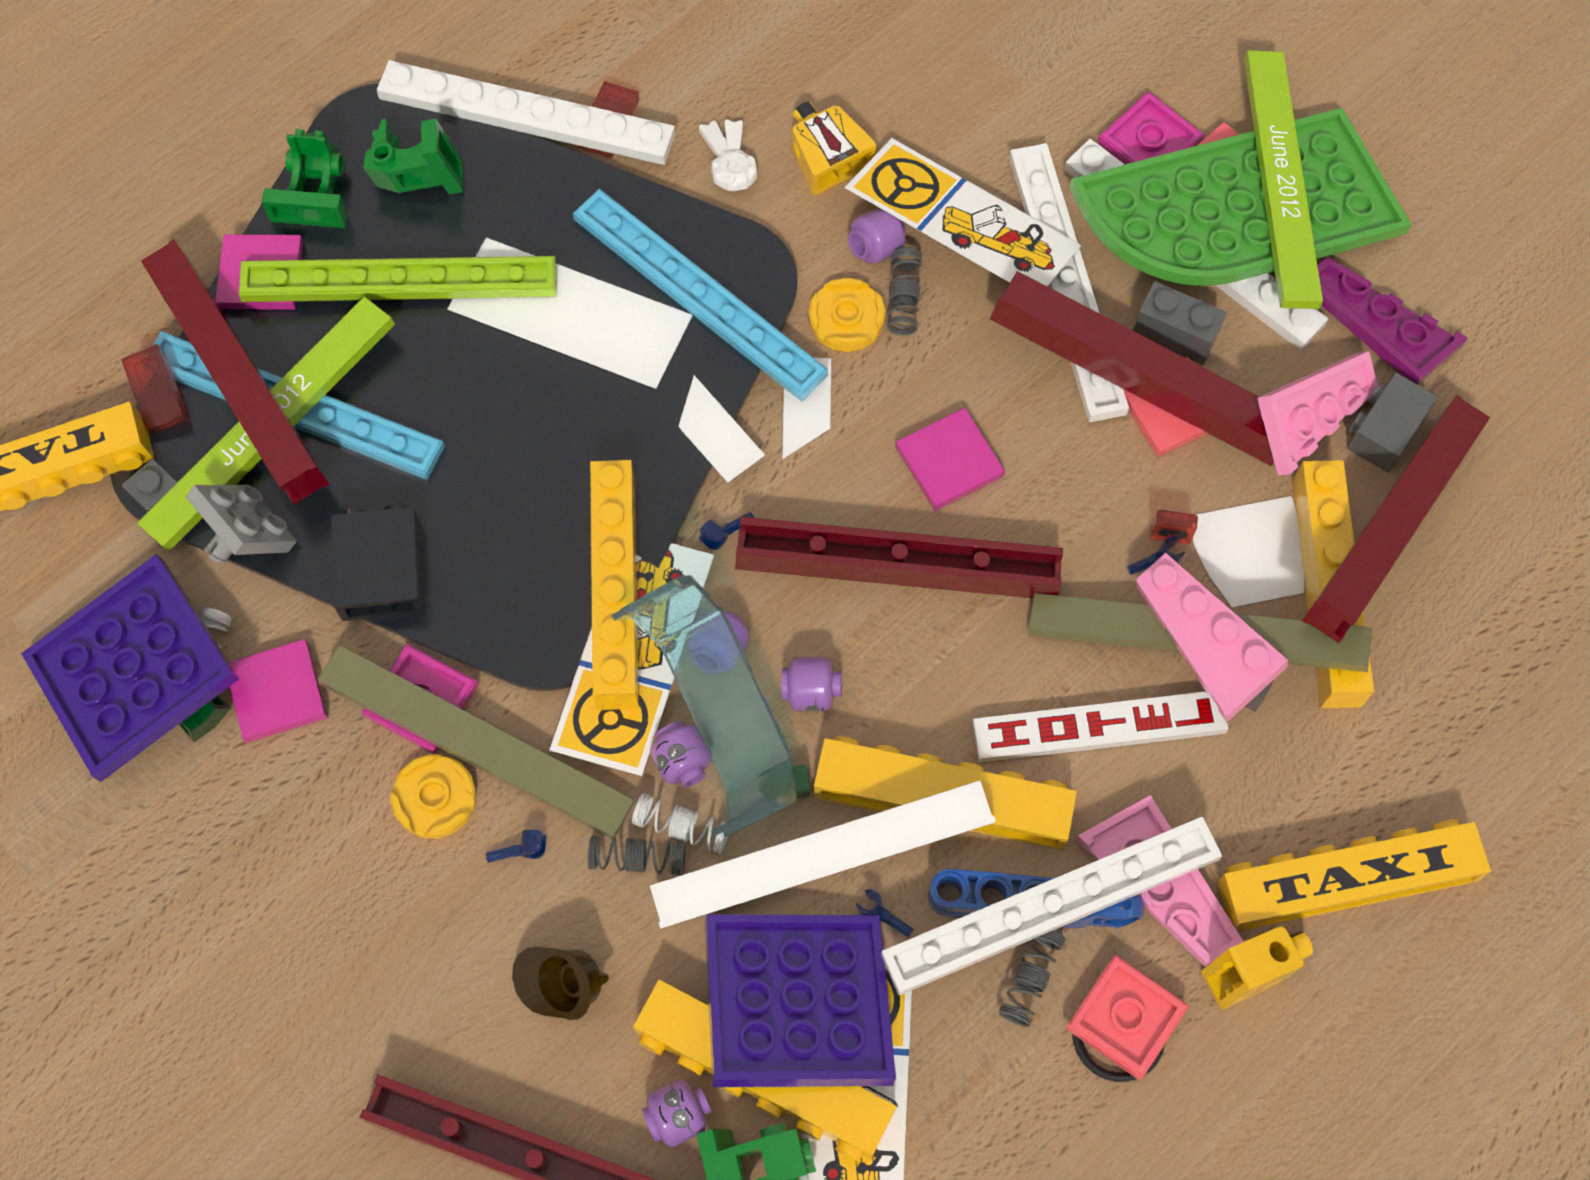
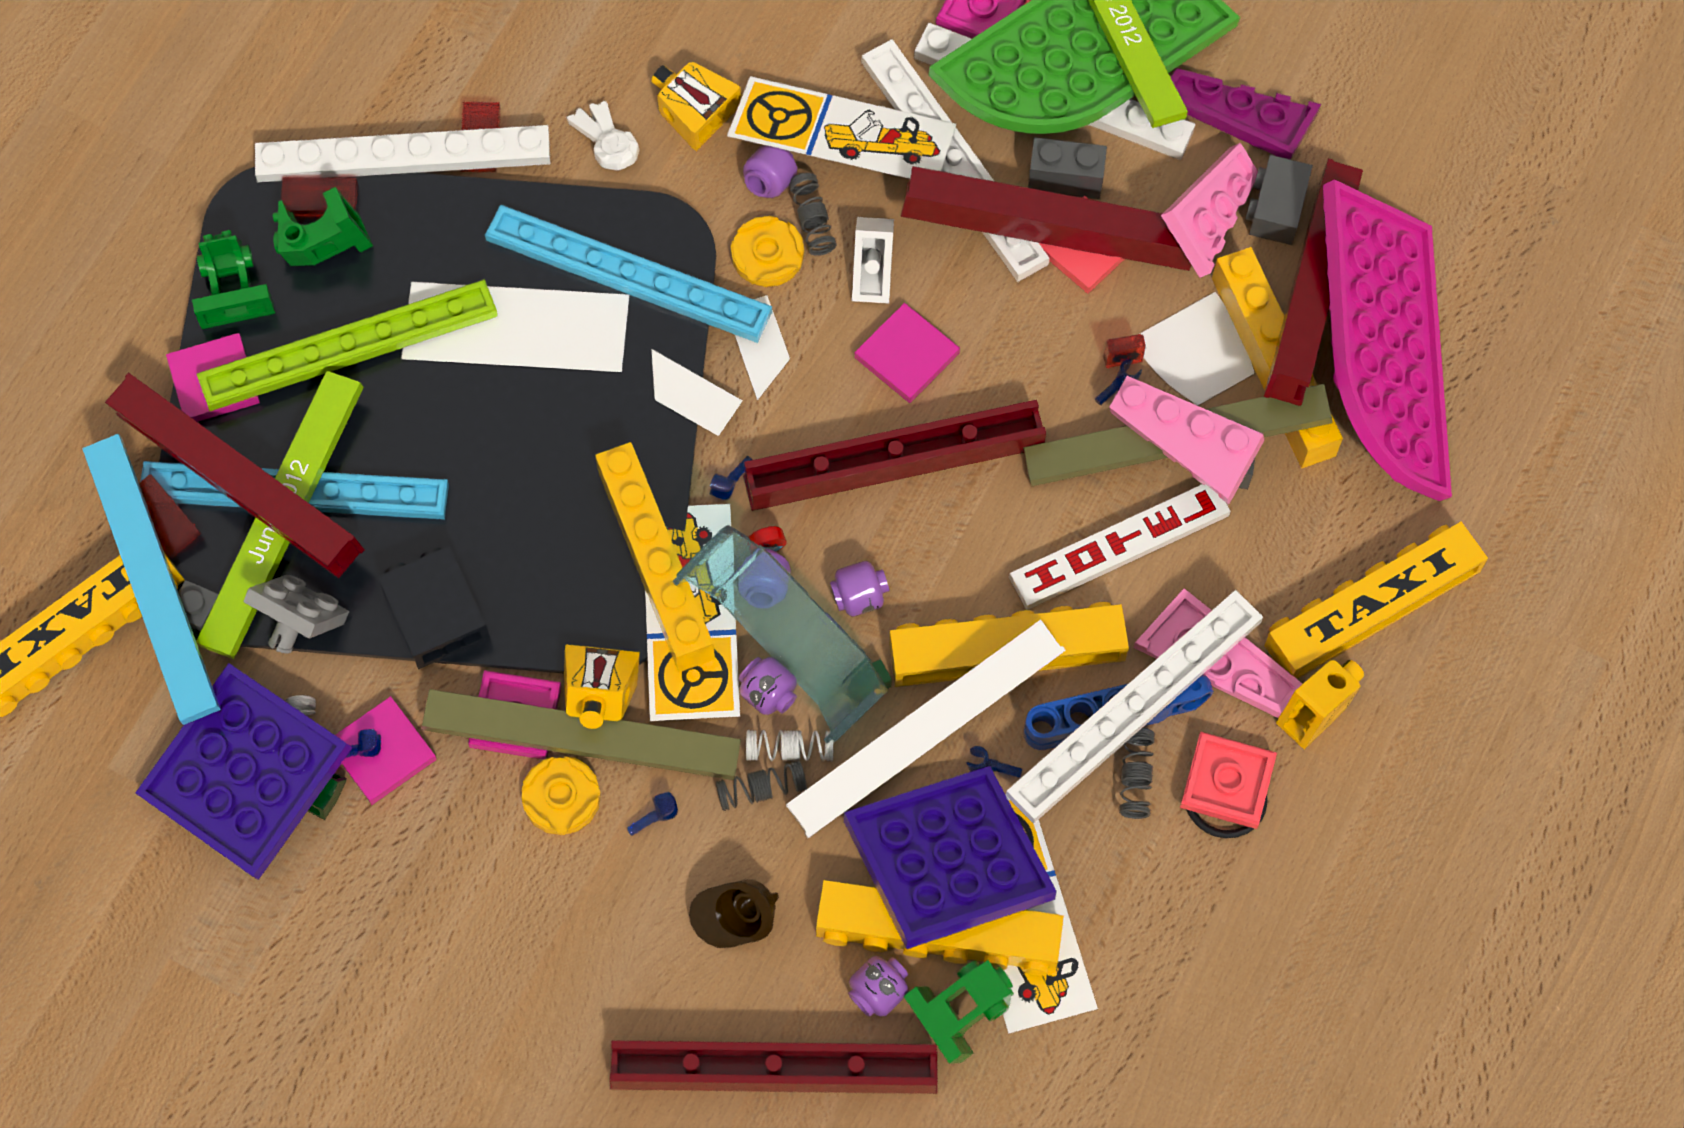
camera: 20 degrees left, 0 degrees up
(111, 449) = (151, 579): none -> medium azure tile
(261, 680) = (368, 744): none -> clear blue hand
(408, 118) = (305, 194): none -> clear red tile
(510, 695) = (599, 683): none -> yellow torso
(738, 602) = (769, 537): none -> red tile
(948, 354) = (872, 260): none -> white slope
(1458, 600) = (1388, 336): none -> dark pink plate

